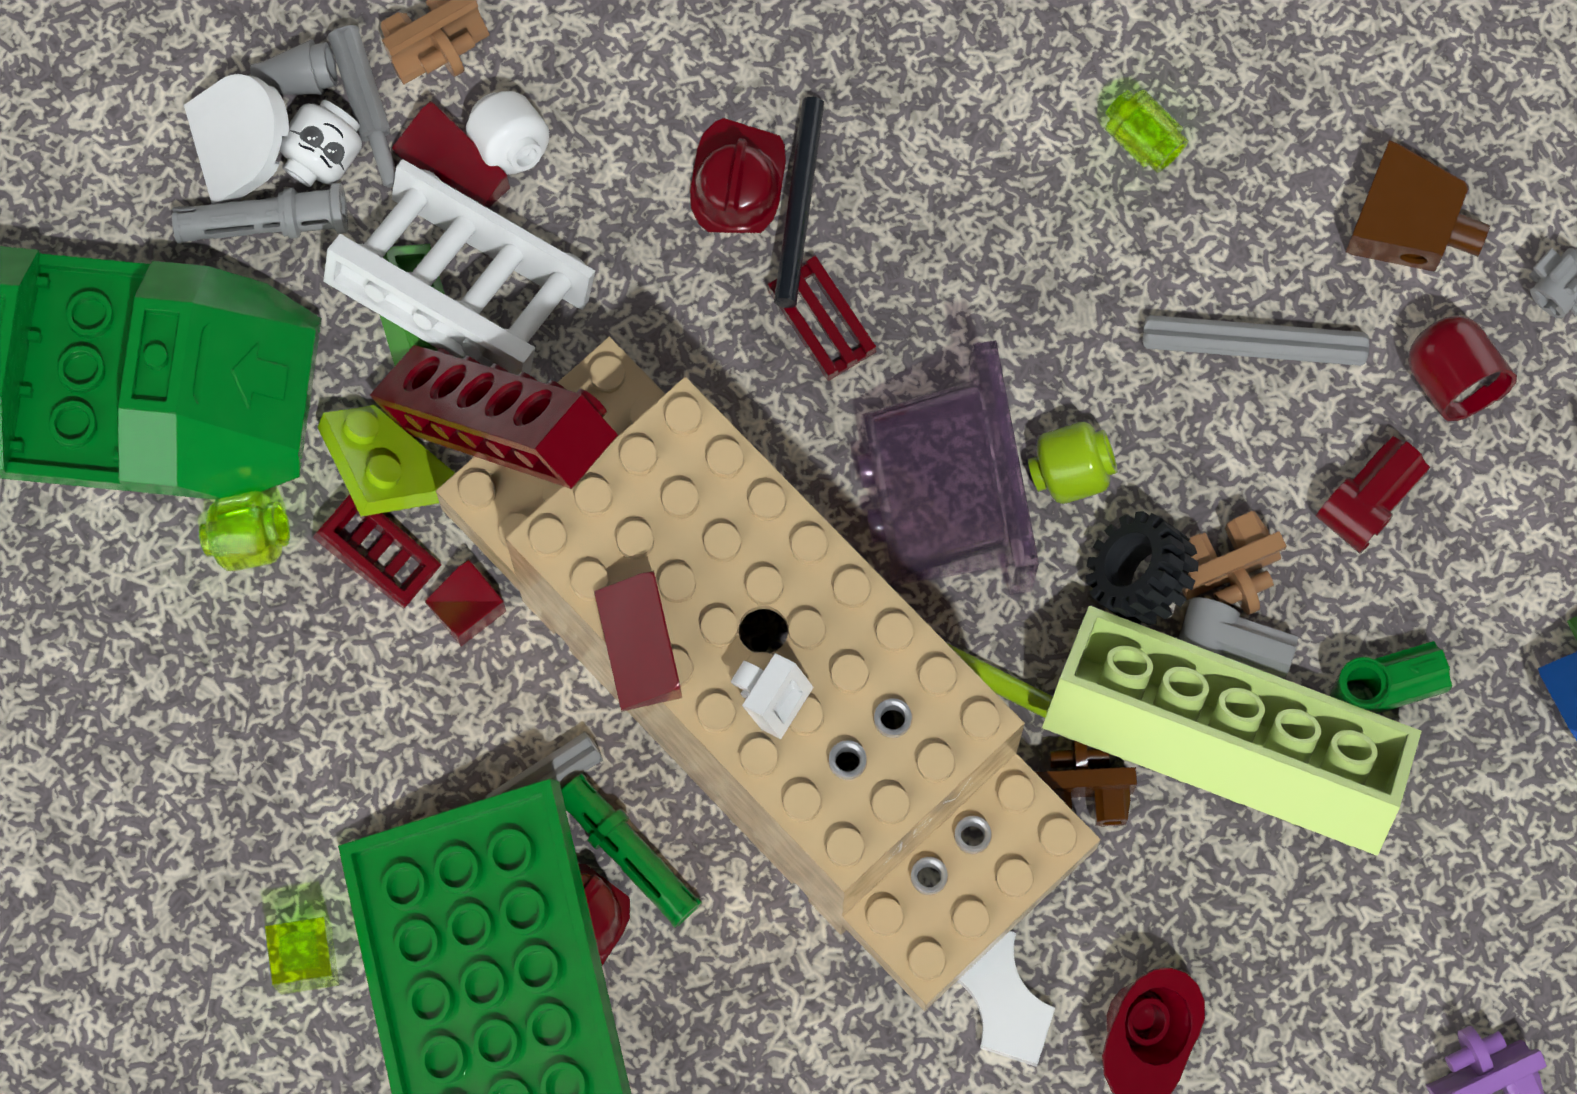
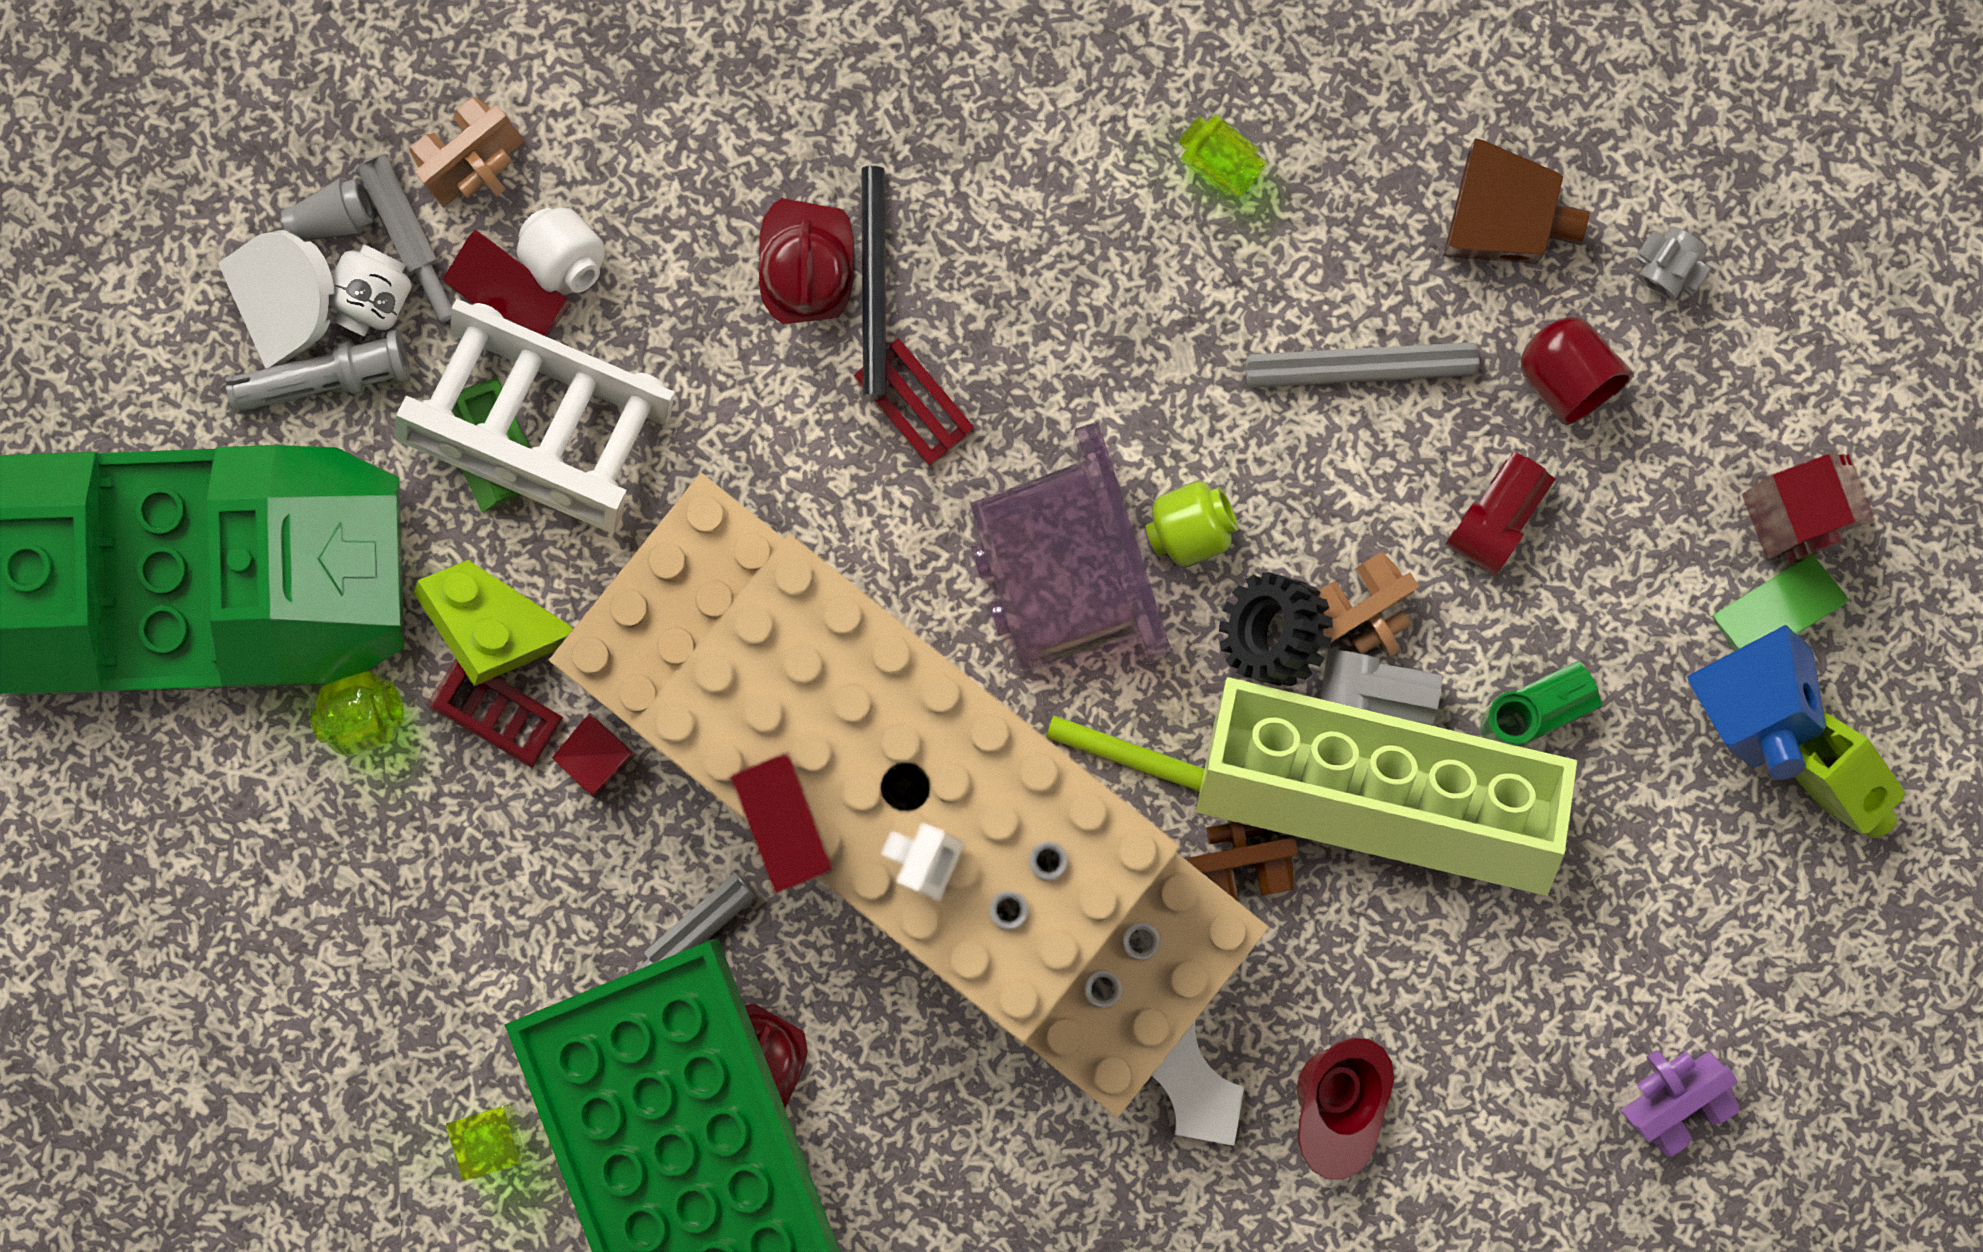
camera: 10 degrees left, 10 degrees up
(496, 414) = (599, 578): dark red brick -> none
(634, 857) = (796, 987): green pin -> none

